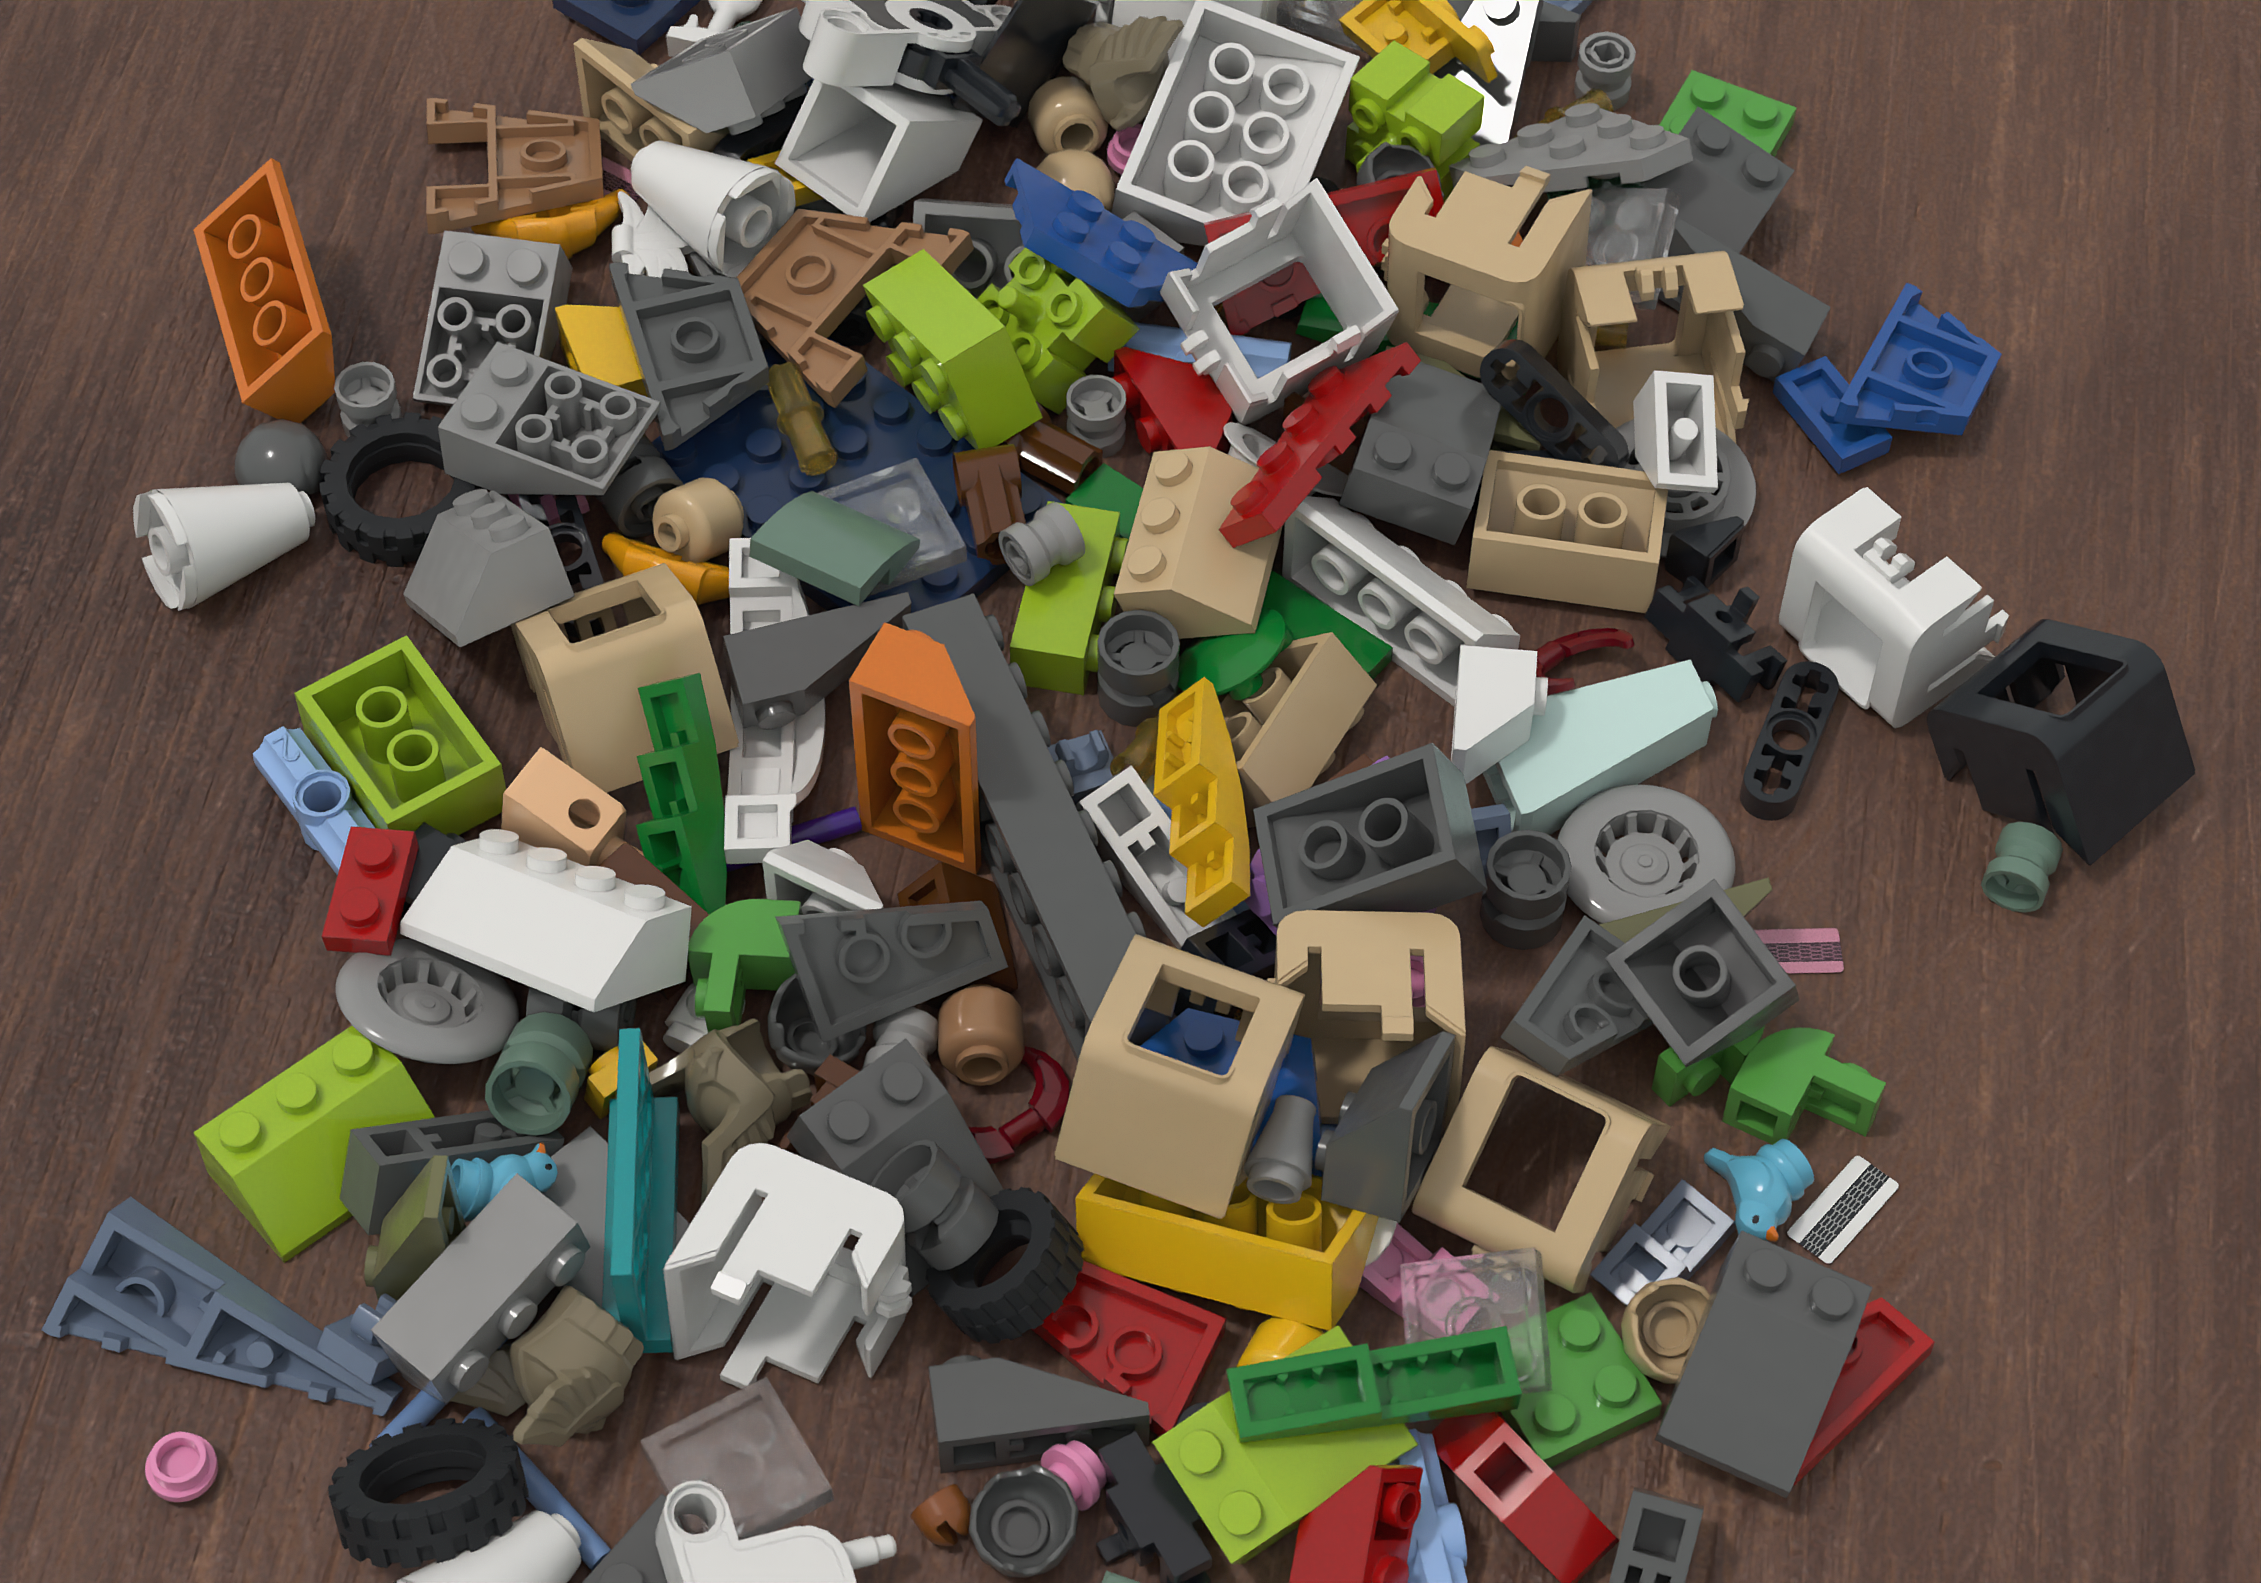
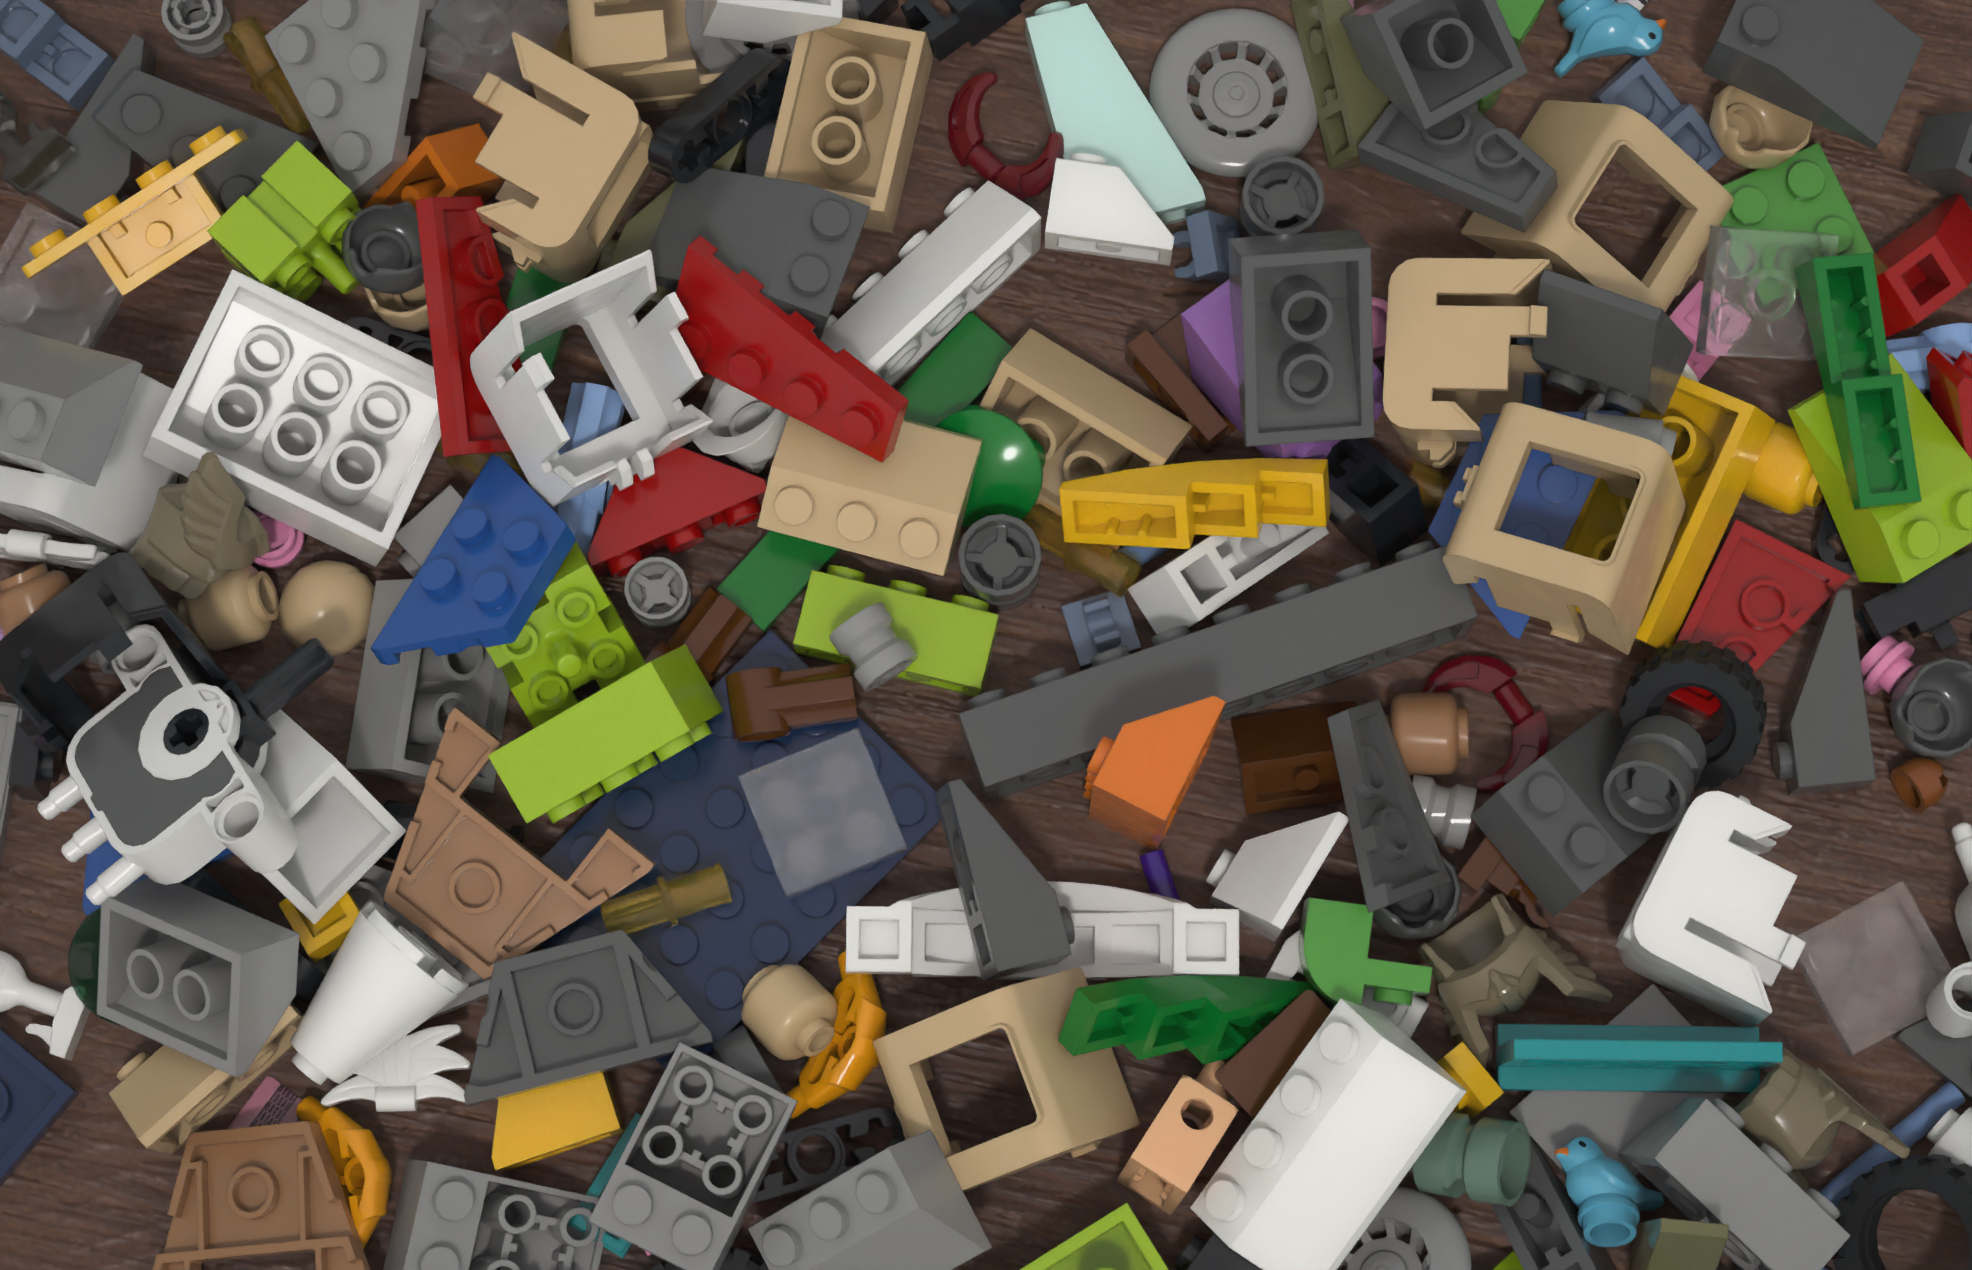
camera: 85 degrees left, 25 degrees up
(832, 547) = (878, 857): sand green slope -> none

